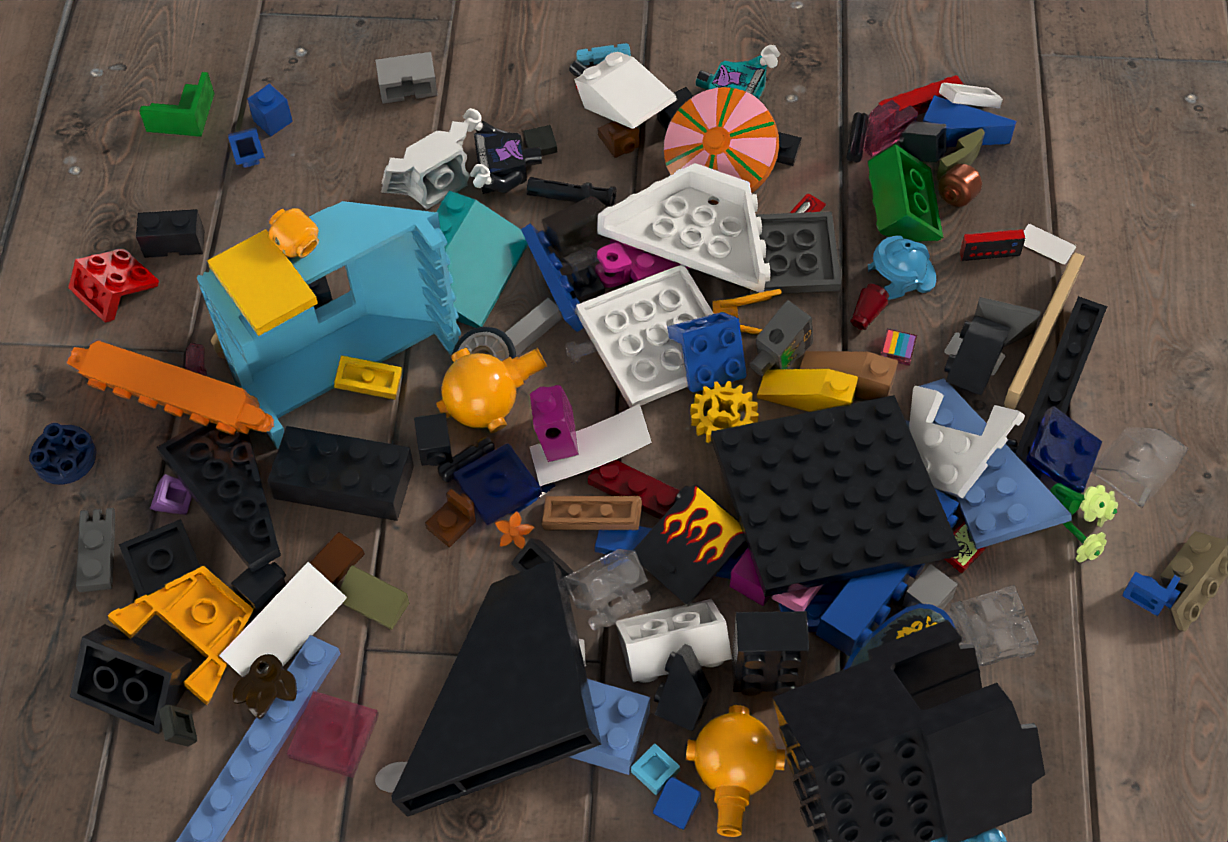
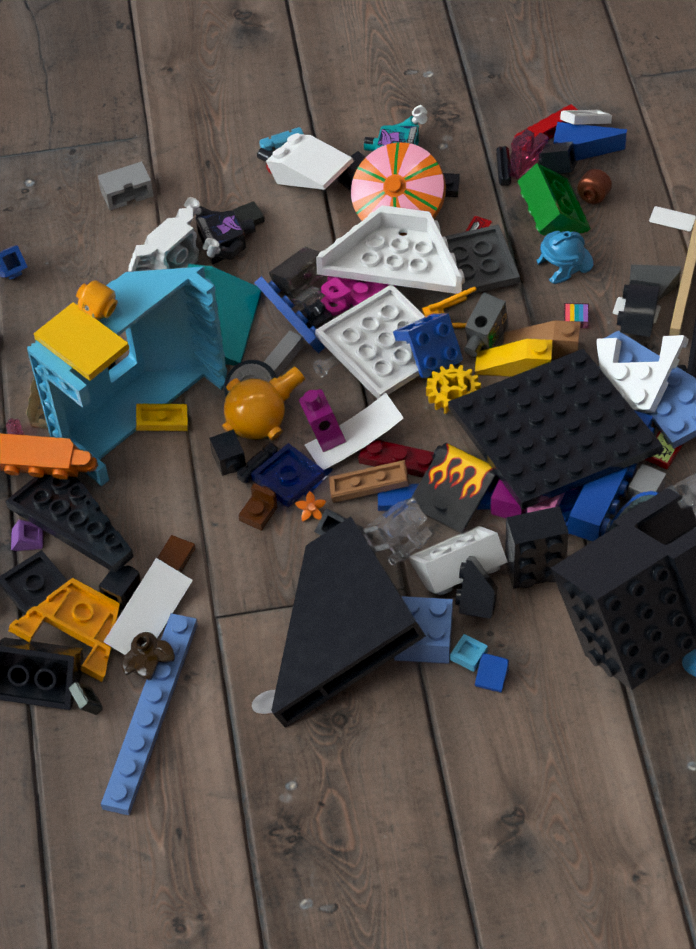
camera: 10 degrees left, 5 degrees down
(270, 110) = (20, 230): blue brick -> none
(333, 734) = (210, 680): clear pink plate -> none
(341, 473) = (161, 491): black brick -> none
(373, 597) = (213, 576): olive slope -> none
(570, 192) = (282, 249): black pin -> none
(619, 138) = (312, 200): reddish brown bracket -> none
(735, 760) = (528, 633): light orange piece -> none
(869, 305) = (546, 288): dark red cone -> none
(965, 153) = (592, 160): olive slope -> none
(992, 245) = (630, 226): tile -> none

